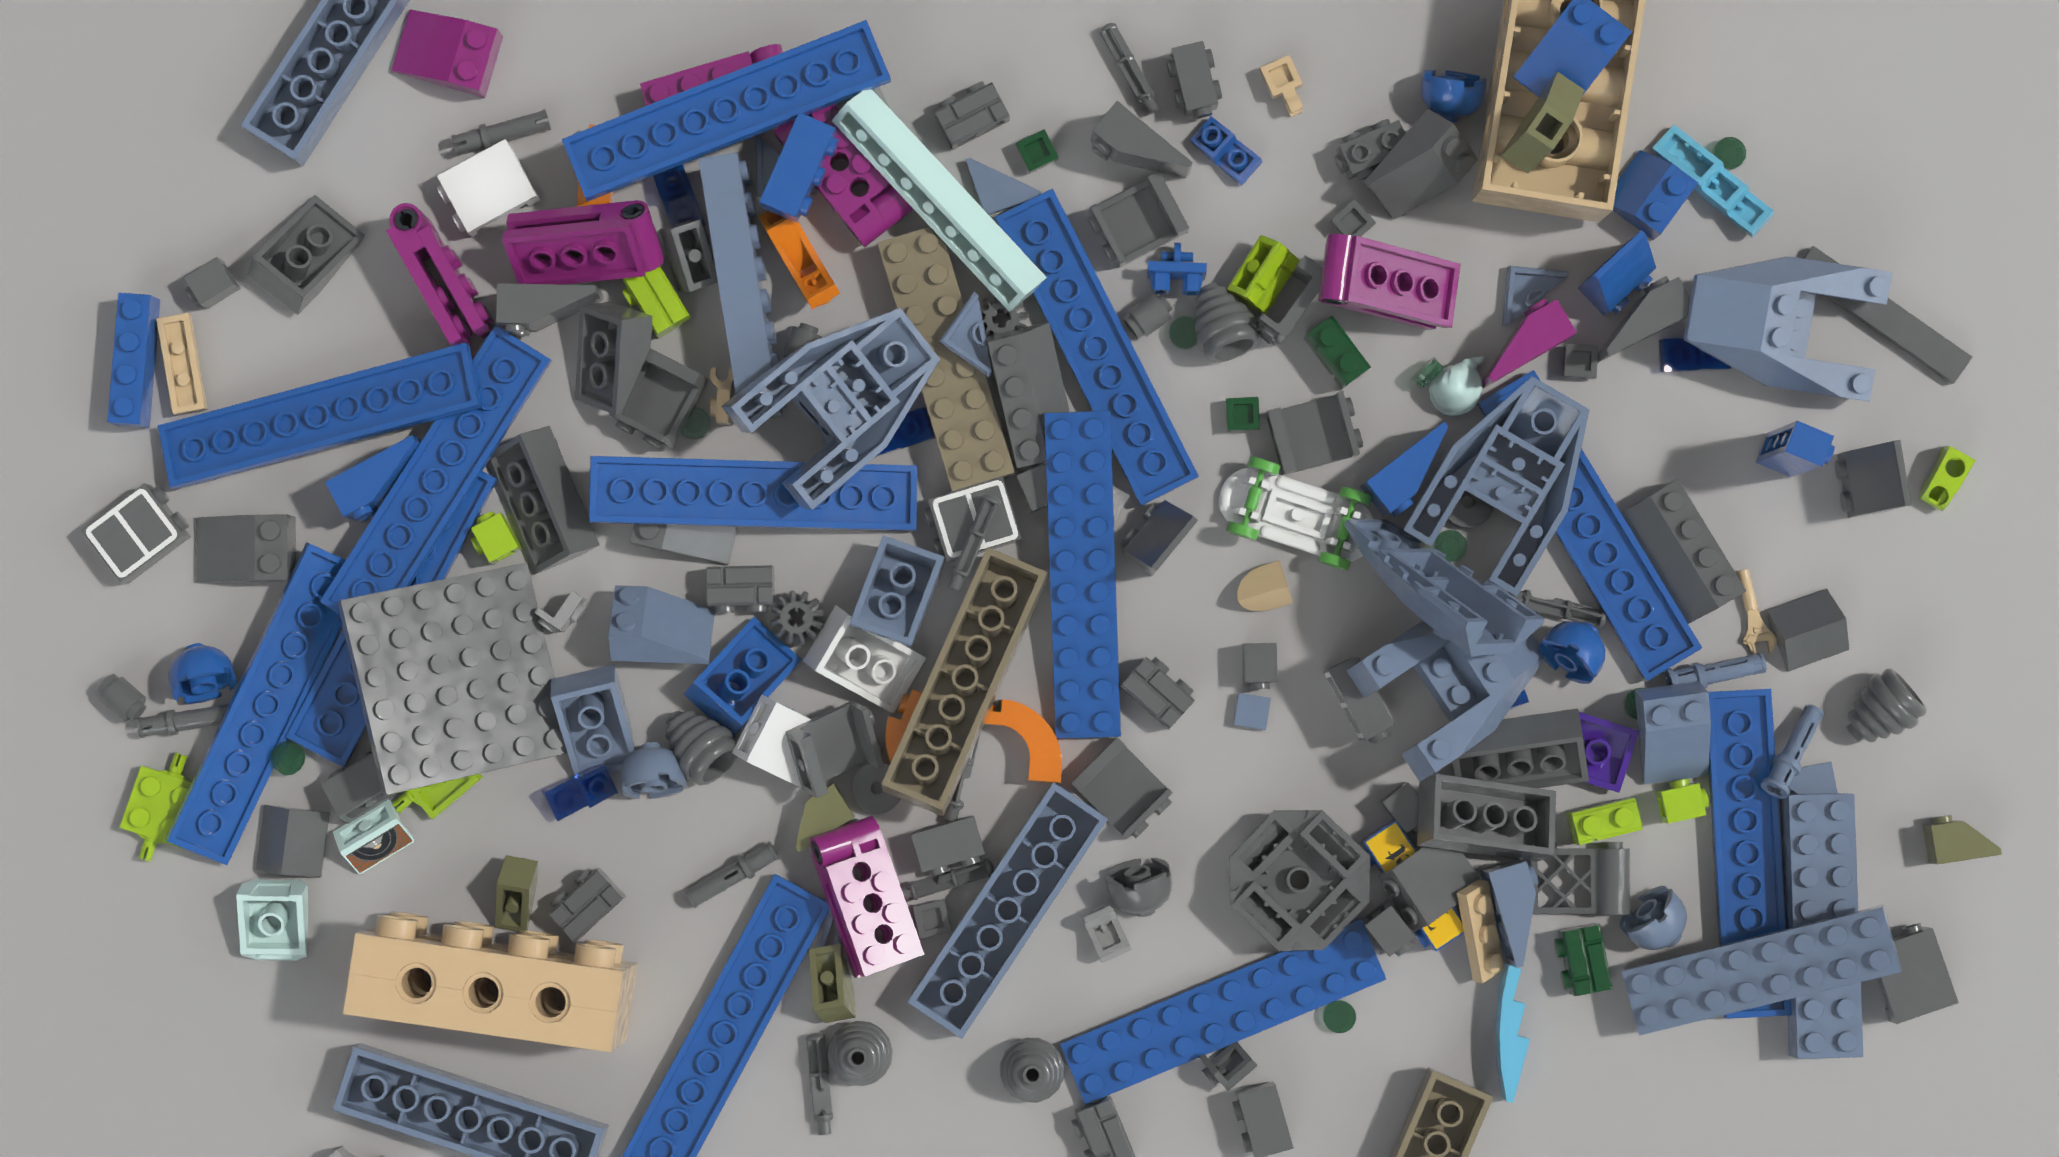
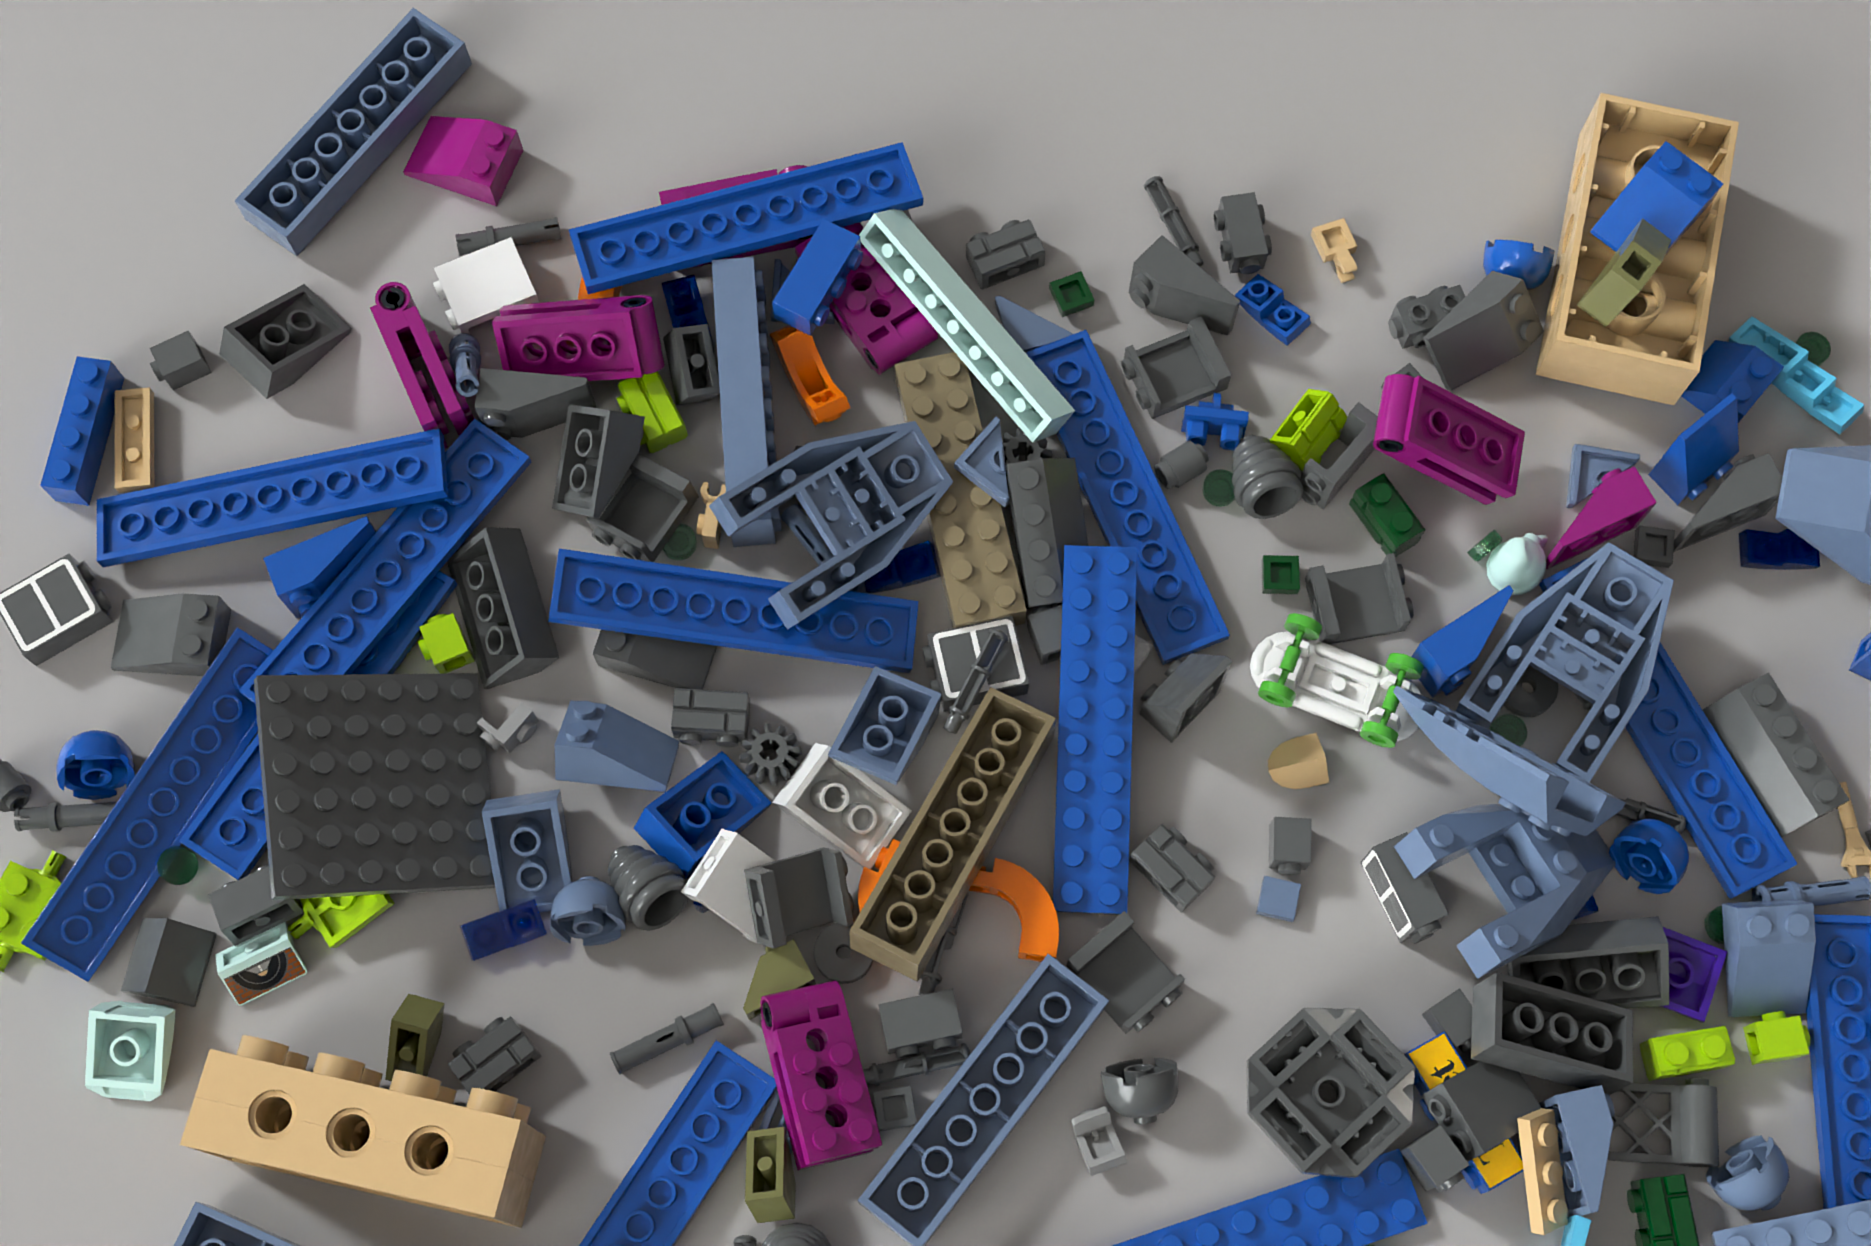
camera: 10 degrees right, 15 degrees down
(479, 268) = (465, 365): none -> sand blue pin

